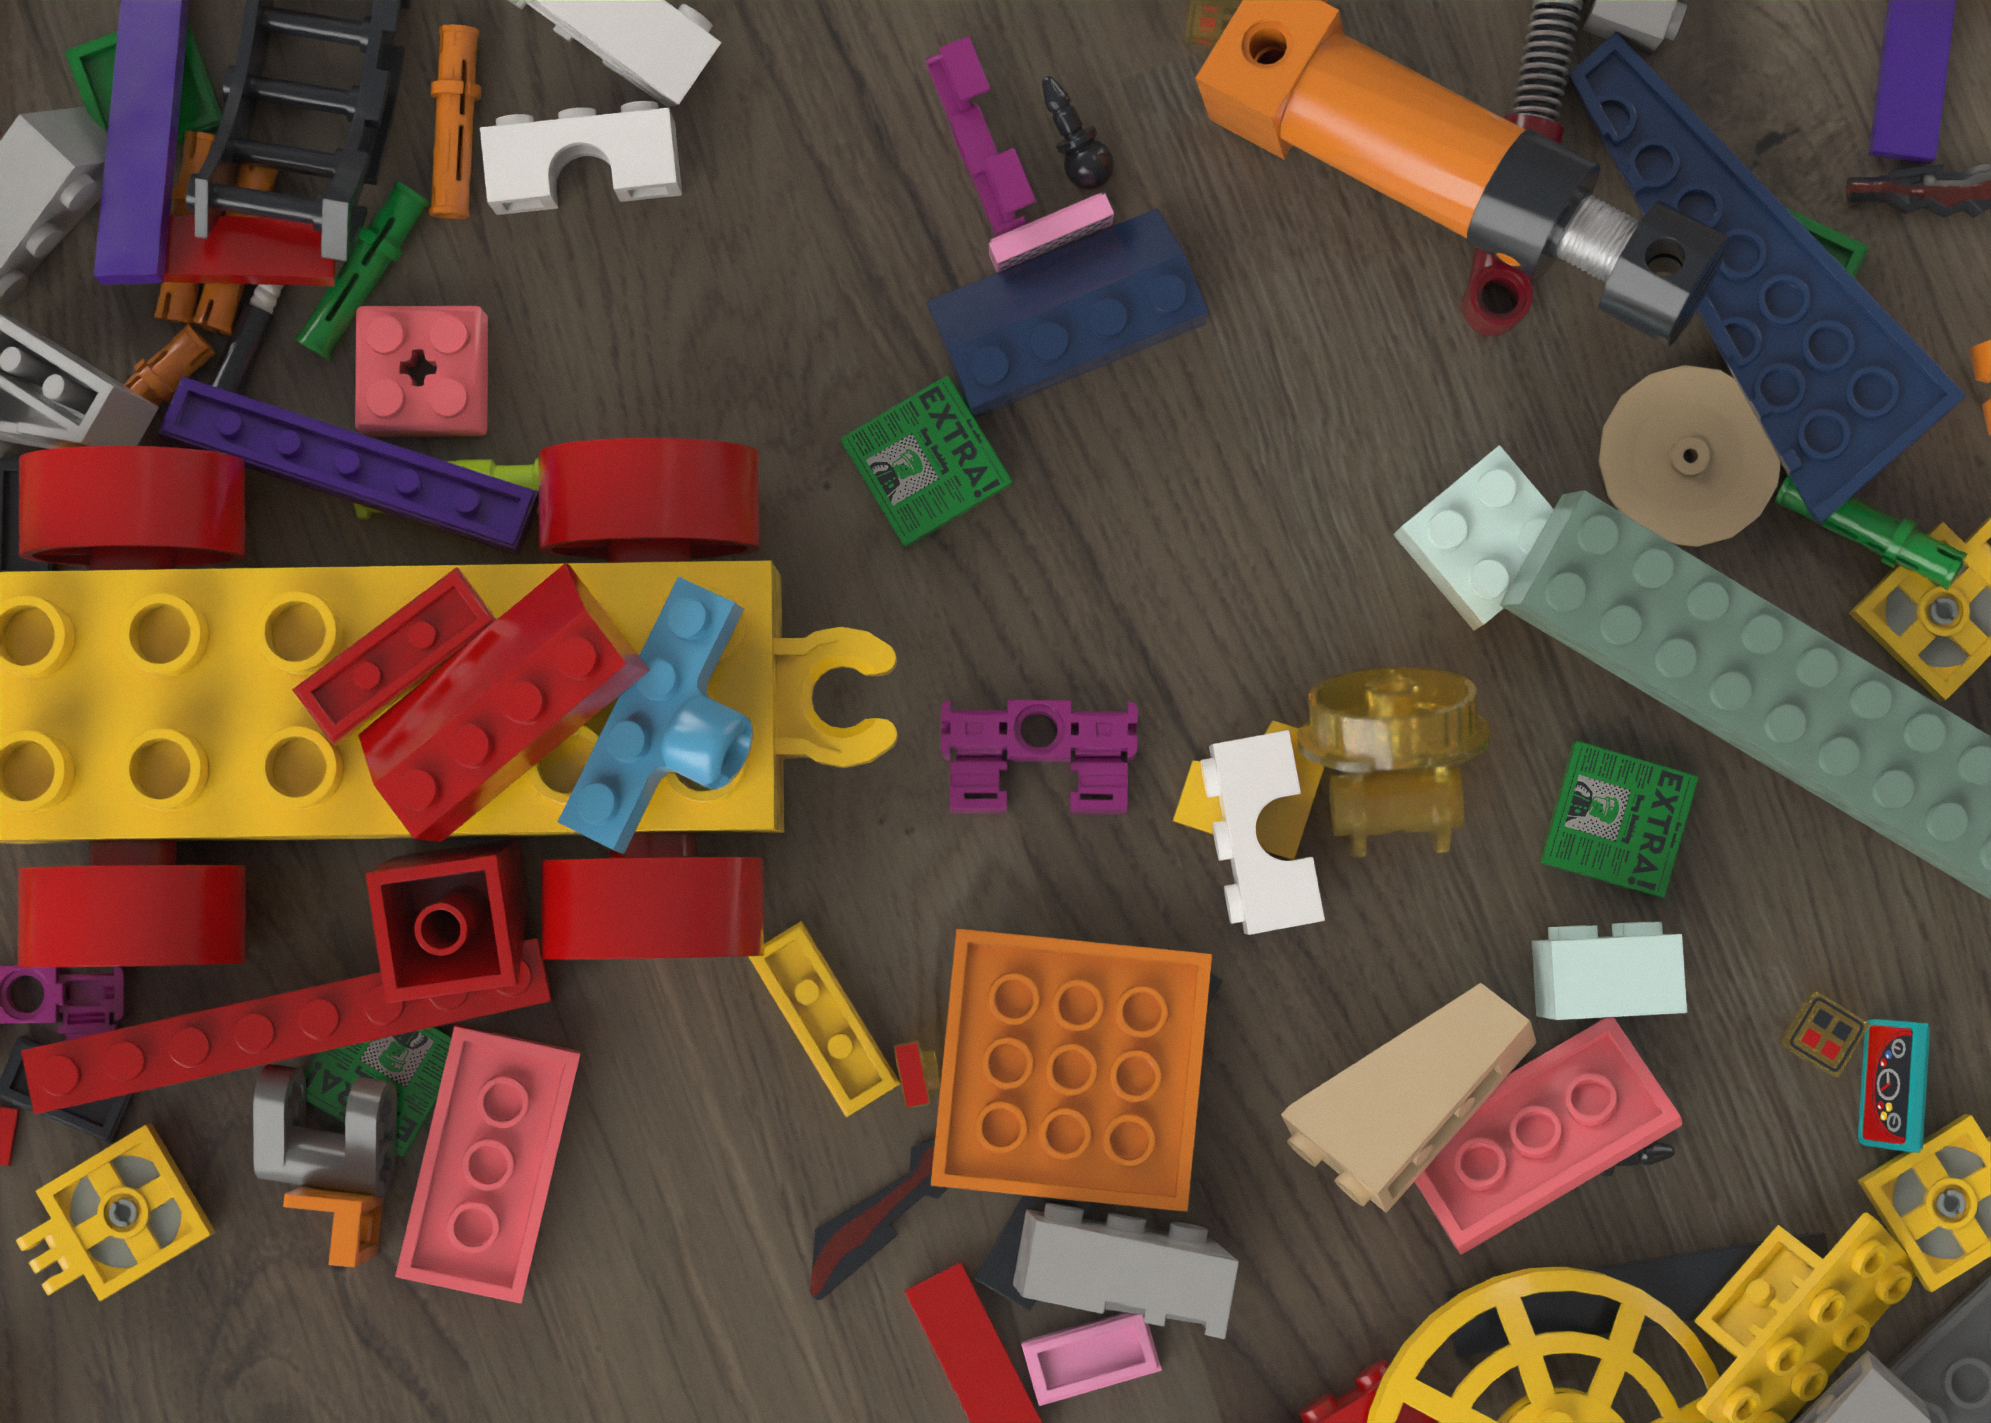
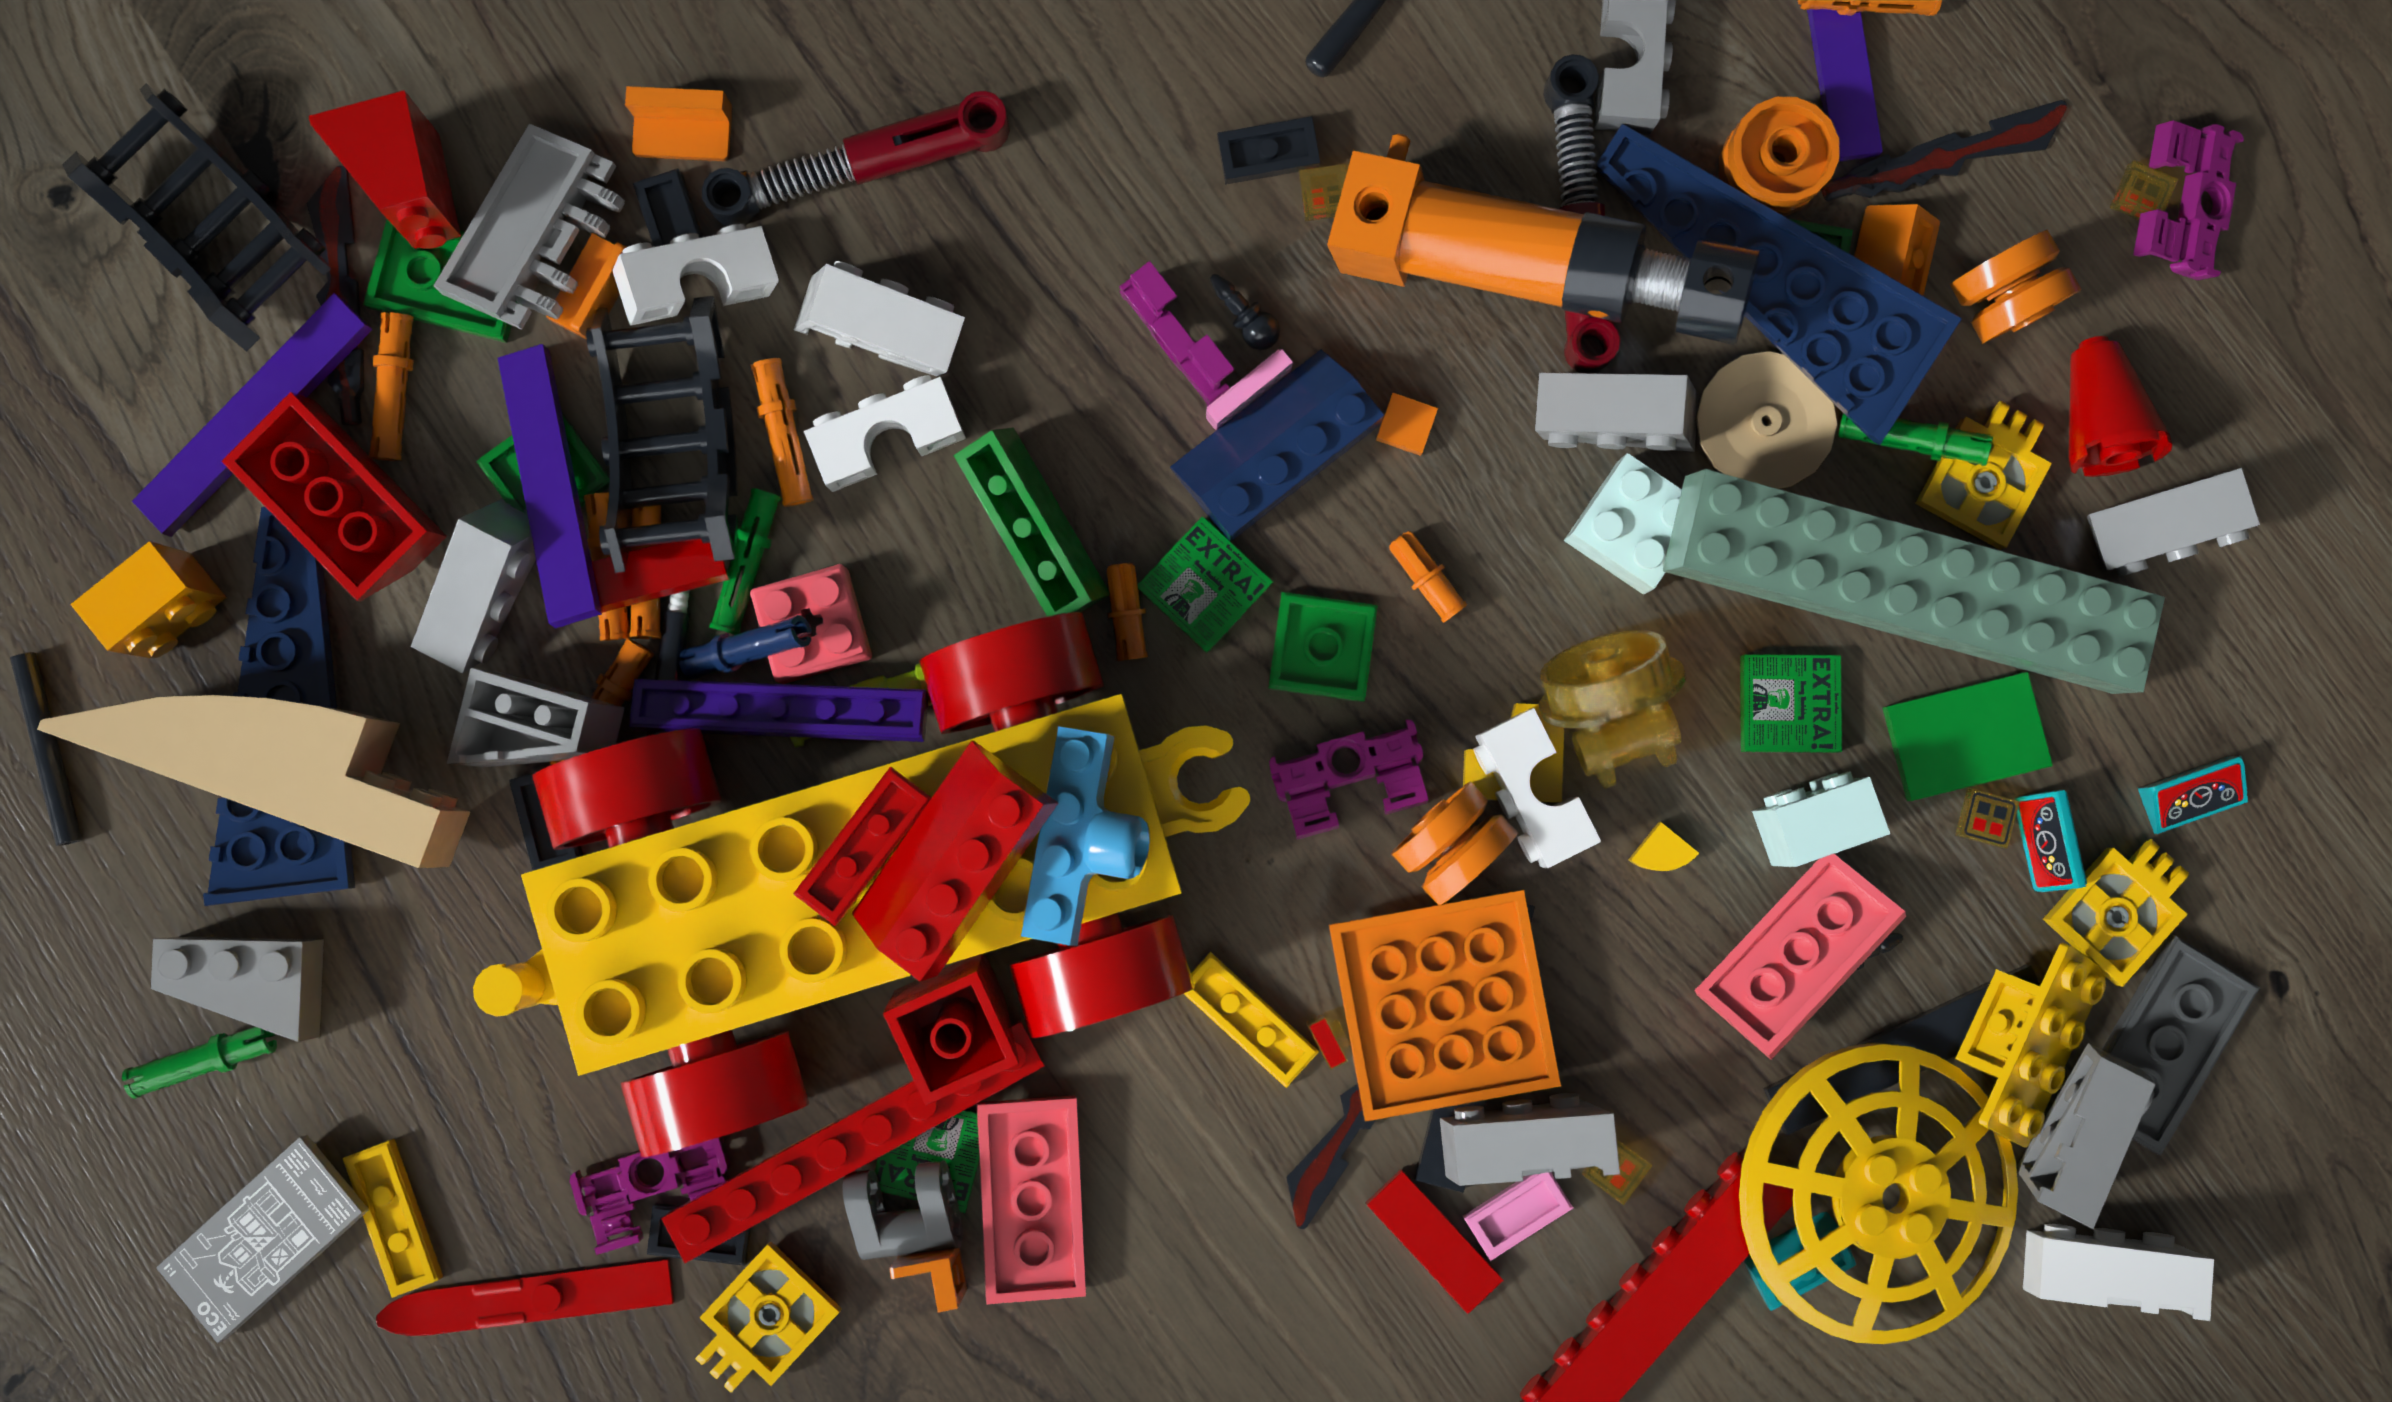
camera: 20 degrees left, 0 degrees up
(314, 376) = (732, 651): none -> dark blue pin
(730, 322) = (1031, 523): none -> green brick
(818, 468) = (1126, 612): none -> orange axle
(1051, 581) = (1322, 647): none -> green tile
(1142, 872) = (1459, 847): none -> orange wheel
(1207, 529) = (1427, 575): none -> orange axle
(1237, 332) = (1406, 424): none -> orange tile
(1242, 1345) = (1620, 1186): none -> clear yellow tile
(1404, 957) = (1663, 850): none -> yellow tile
(1409, 1097) = (1698, 954): tan slope -> none
(1505, 390) = (1617, 411): none -> light grey wedge
(1829, 924) = (1967, 736): none -> green tile
(1830, 107) = (1796, 135): none -> orange wheel
(1922, 282) = (1899, 242): none -> orange panel

